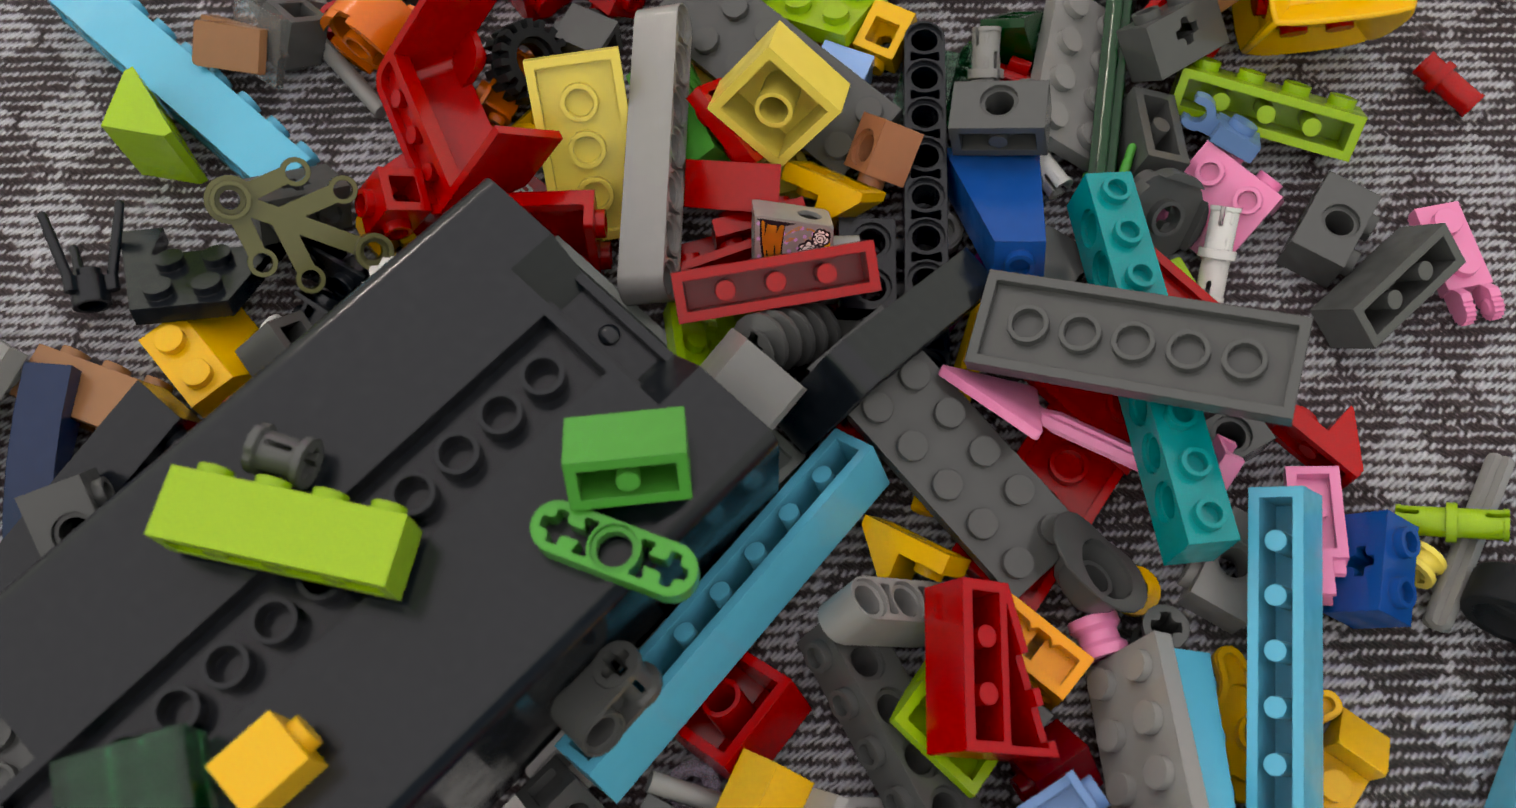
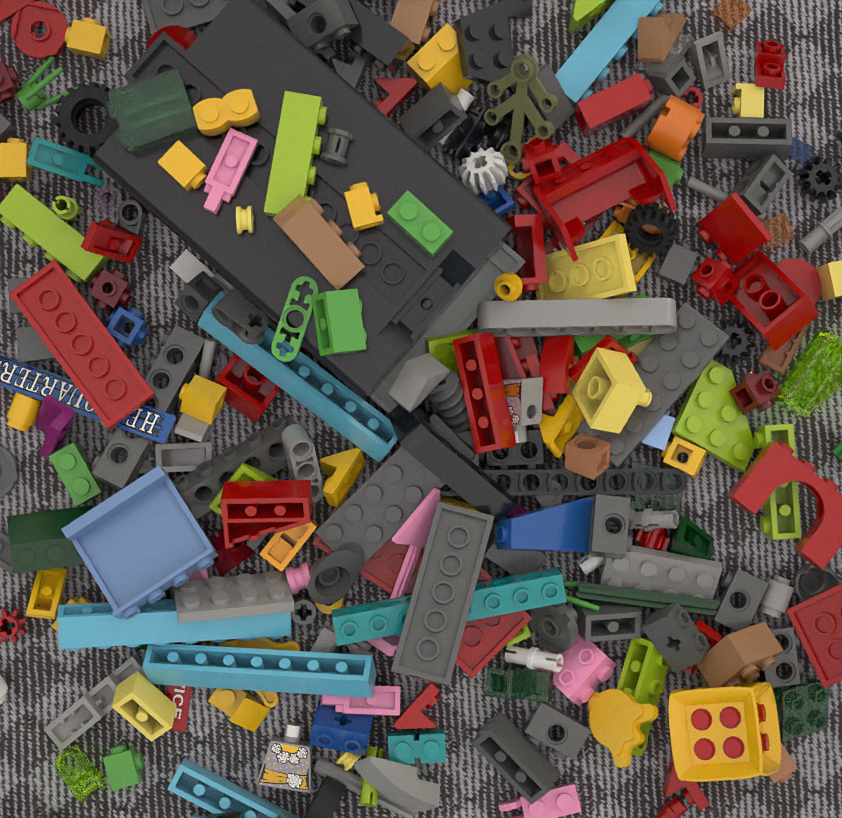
camera: 85 degrees right, 20 degrees up
(171, 660) = (219, 115): none -> yellow brick
(292, 670) = (228, 169): none -> bright pink hinge
(323, 106) = (612, 104): none -> red brick
(400, 640) = (244, 219): none -> light yellow bush
(409, 410) = (363, 207): none -> yellow brick
(454, 307) = (419, 223): none -> bright green brick
(457, 480) = (319, 241): none -> medium nougat brick
(581, 241) = (514, 284): none -> yellow plate
(1232, 134) = (614, 668): medium blue plate -> none
(1260, 269) = (519, 682): none -> clear green brick
(1316, 122) = (617, 720): none -> yellow tile
(1390, 61) = (691, 792): none -> red slope
(1396, 463) = (429, 747): none -> teal piece
(1444, 675) = (288, 762): none -> torso
(1463, 467) = (399, 783): none -> light grey slope

